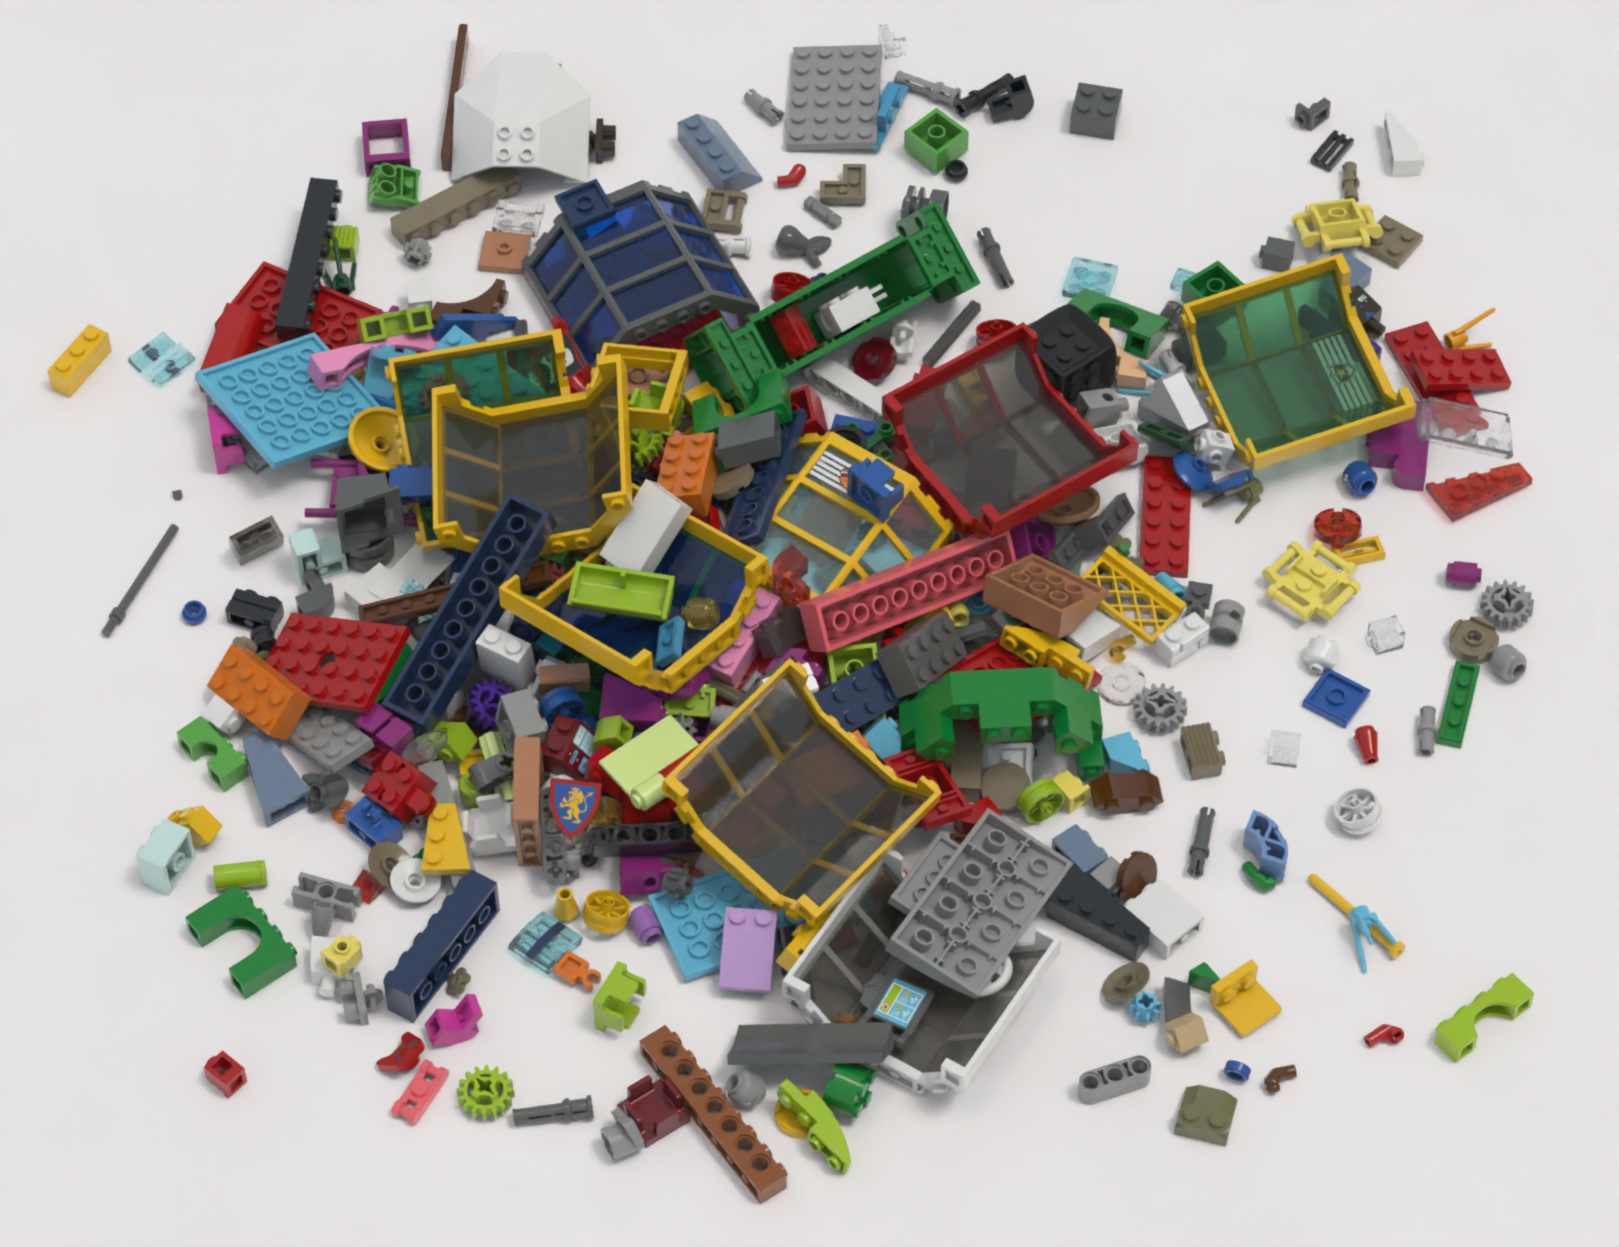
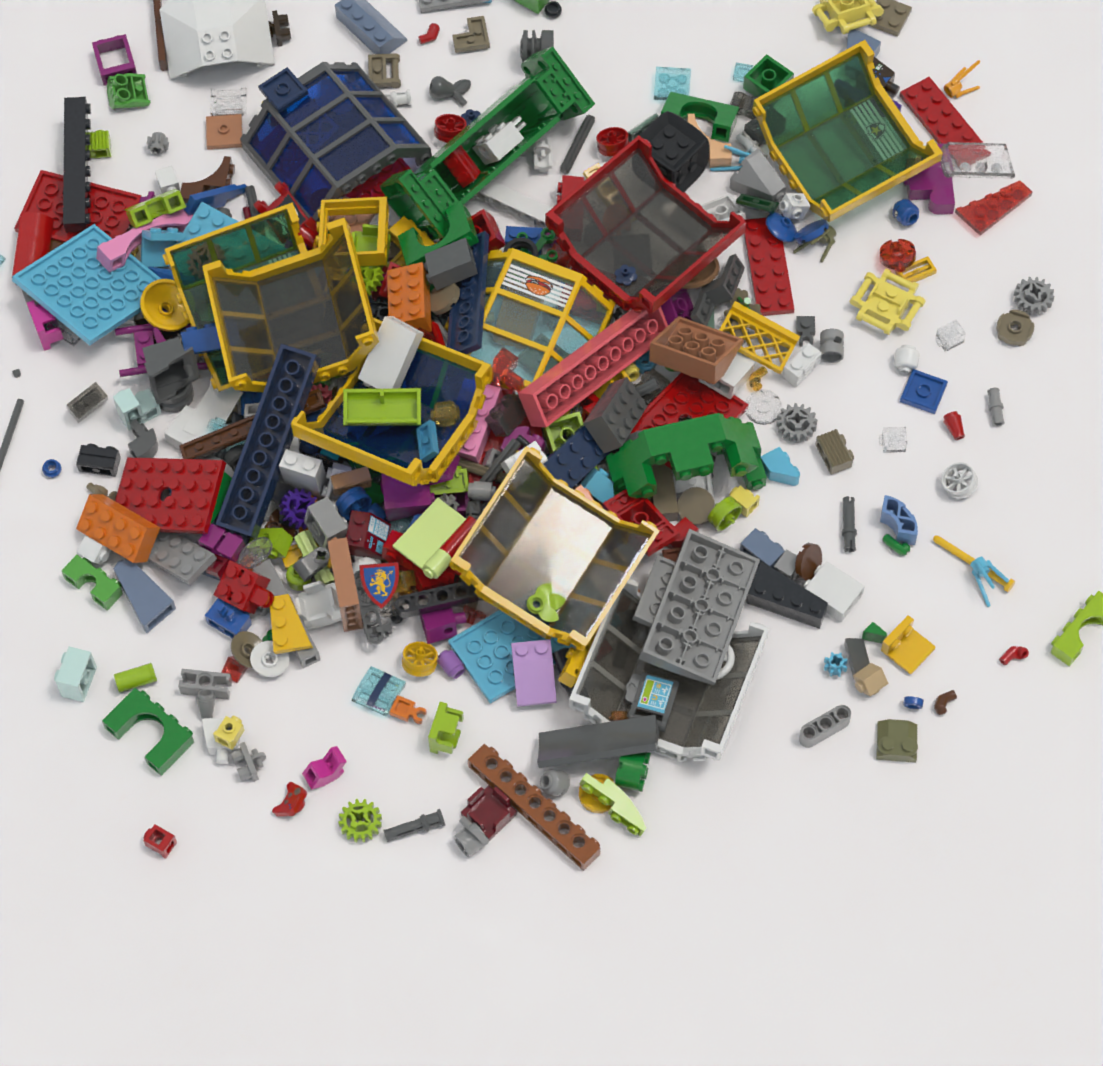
camera: 10 degrees left, 10 degrees up
(200, 821) = (92, 641): yellow slope -> none
(263, 638) = (110, 481): black wheel -> none
(326, 790) = (186, 598): dark grey brick -> none
(339, 815) = (201, 605): clear orange plate -> none
(341, 281) = (104, 177): dark green plant -> none
(420, 1092) = (310, 828): coral plate -> none
(441, 945) = (302, 709): dark blue brick -> none
(455, 204) = (177, 99): dark tan brick -> none
(458, 981) = (319, 734): dark tan plant -> none
(565, 906) = (388, 660): yellow cone -> none
(612, 732) = (397, 519): lime brick -> none
(678, 883) = (469, 628): dark grey gear -> none
(784, 864) = (548, 602): none -> lime plate
(822, 212) = (459, 59): light grey axle -> none
(868, 489) = (552, 290): blue panel -> none
(882, 367) = (533, 179): dark red tile -> none
(974, 492) = (626, 275): none -> dark blue plant
(992, 250) = (594, 71): dark grey pin -> none
(1041, 650) = (700, 392): yellow slope -> none
(1100, 407) = (703, 187): light grey torso -> none
(1126, 792) = (786, 495): reddish brown brick -> none
(1126, 981) = (817, 646): dark tan dish -> none
(1171, 584) = (784, 322): medium azure cone -> none
(1277, 254) = (807, 40): dark grey brick -> none
(1458, 704) = (1014, 381): green tile -> none
(1460, 369) = (962, 112): red plate -> none
(1463, 573) = (997, 276): magenta brick -> none
(1508, 662) = (1044, 342): light grey head -> none

